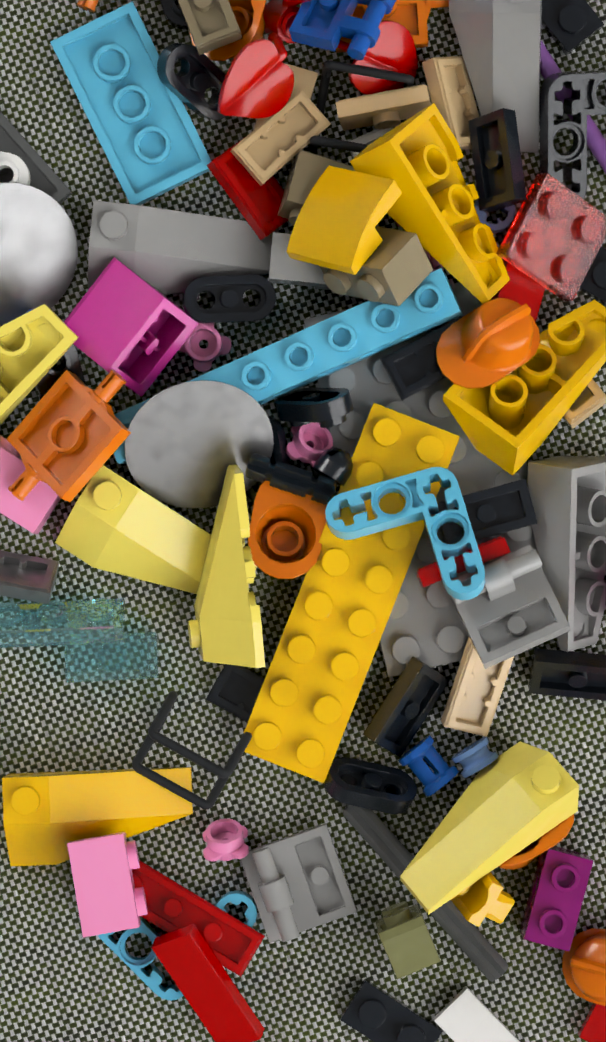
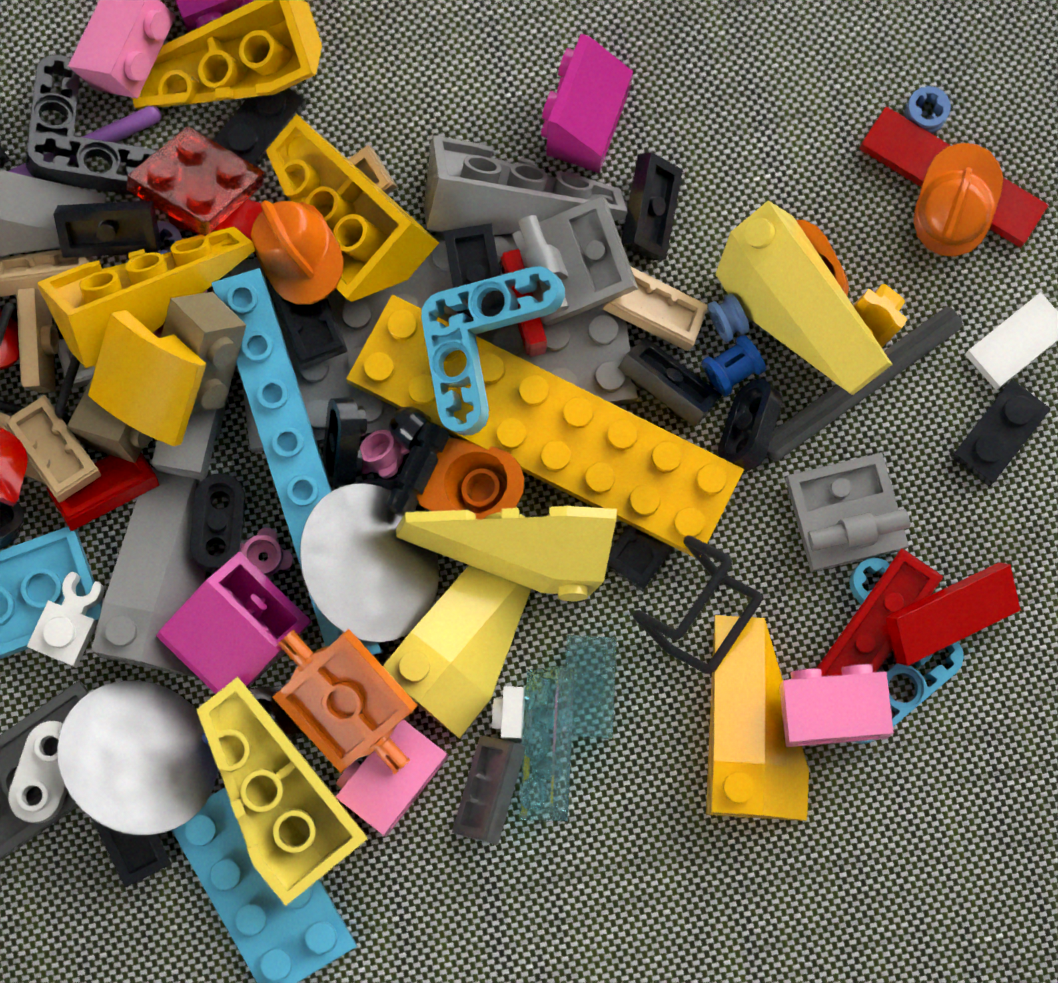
camera: 90 degrees left, 10 degrees down
(78, 586) = (509, 713): none -> white plate
(115, 172) = (65, 629): none -> white plate
(225, 840) = (796, 584): bright pink plate -> none
(406, 939) = (913, 402): olive slope -> none
(556, 897) = (882, 248): magenta brick -> none

